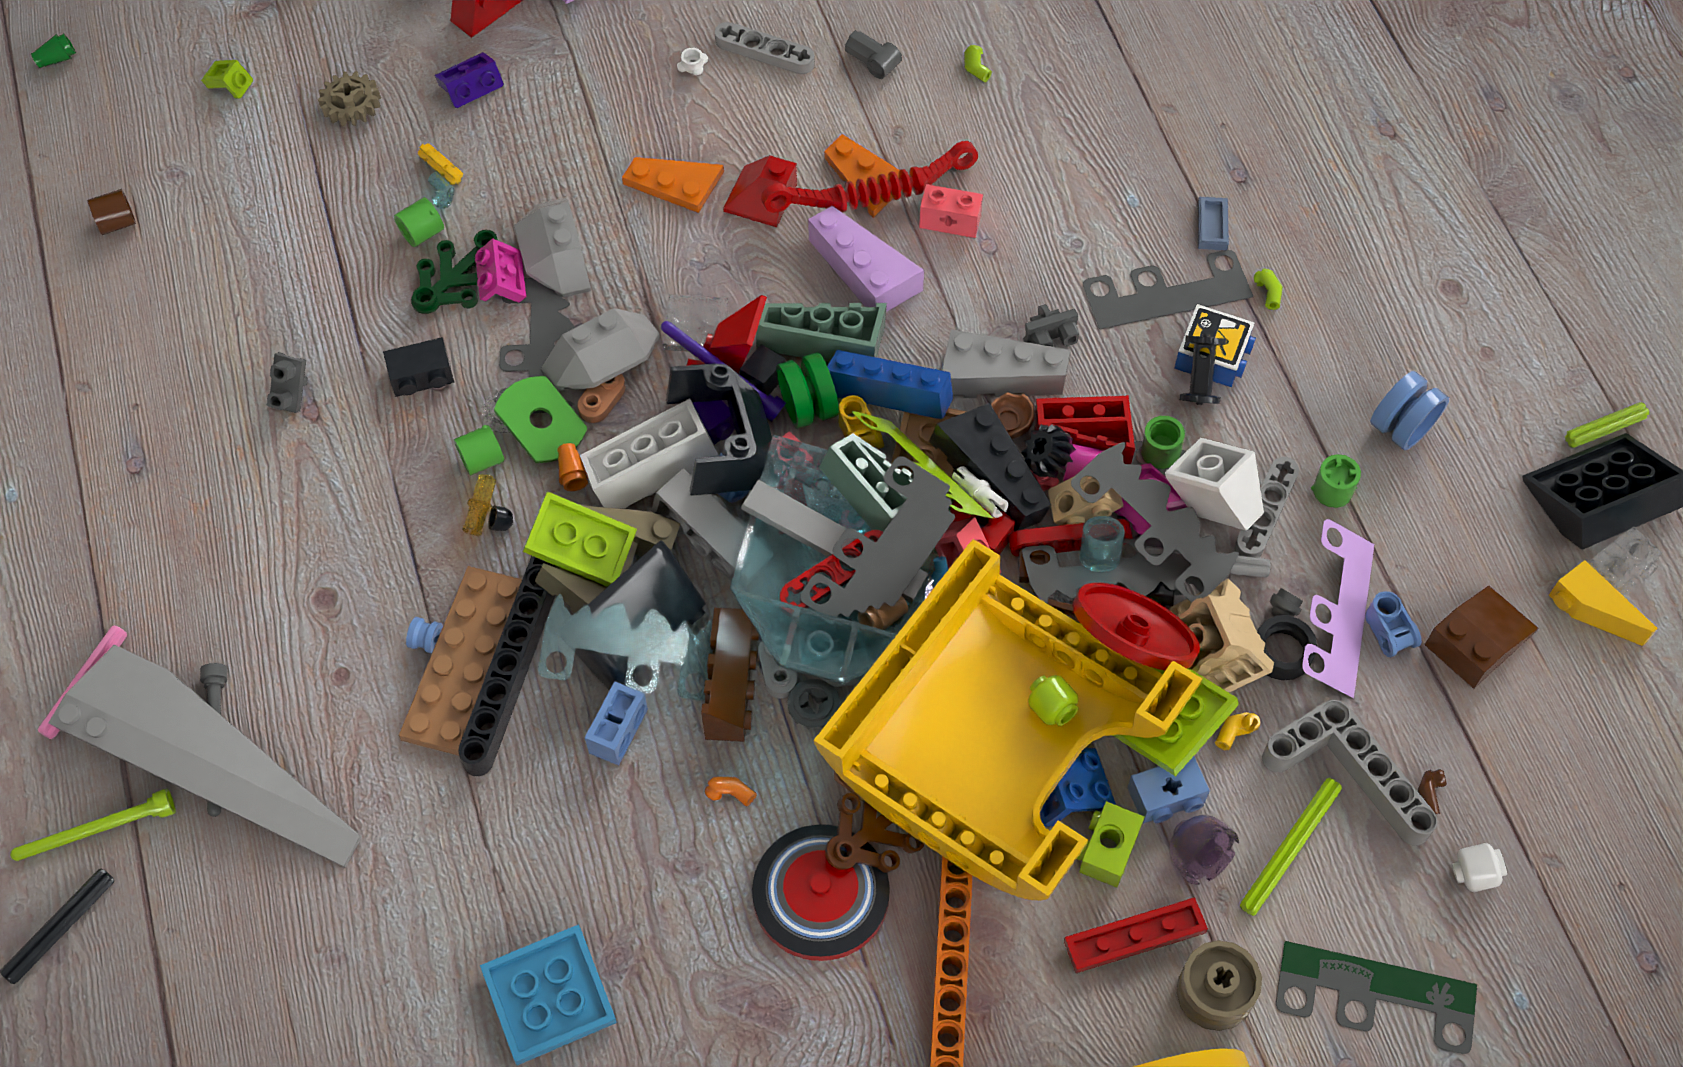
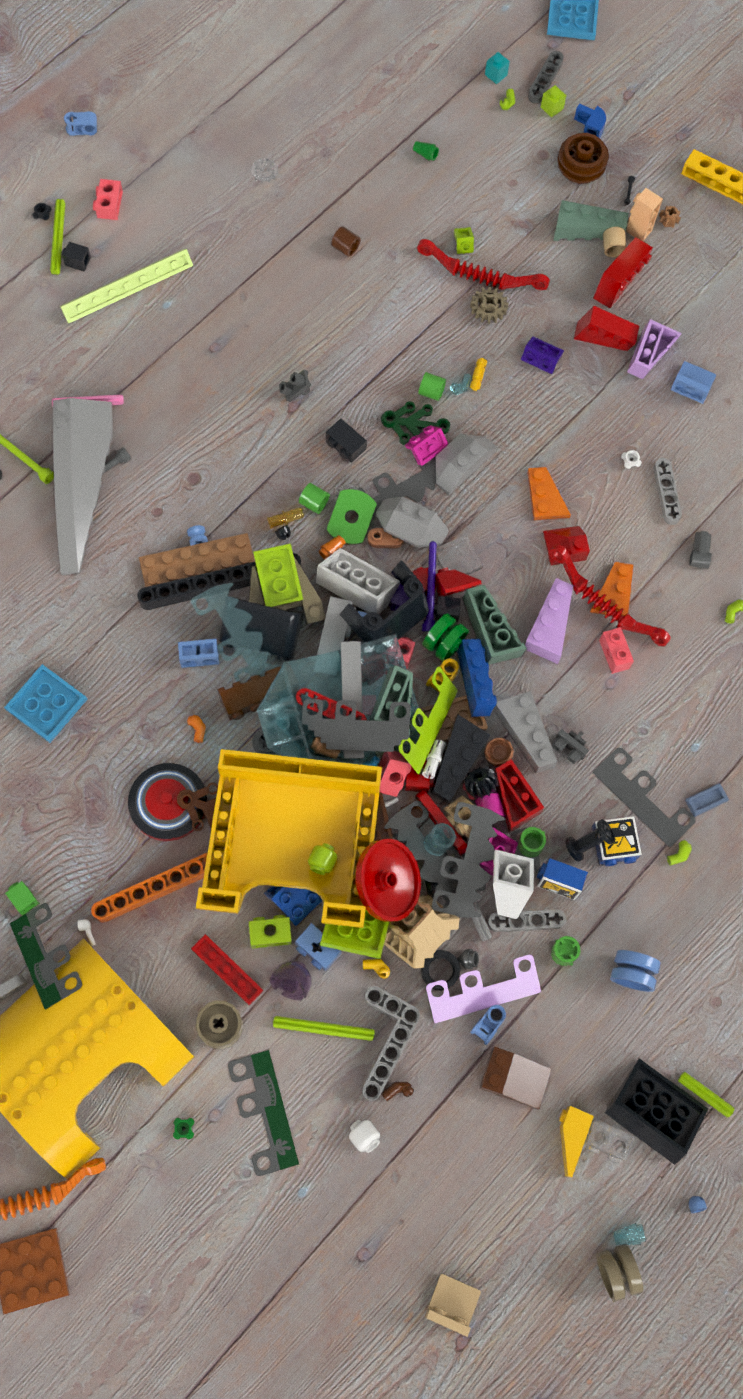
camera: 55 degrees right, 10 degrees up
(259, 108) = (428, 248): none -> red piece
(1243, 421) = (561, 879): none -> blue piece

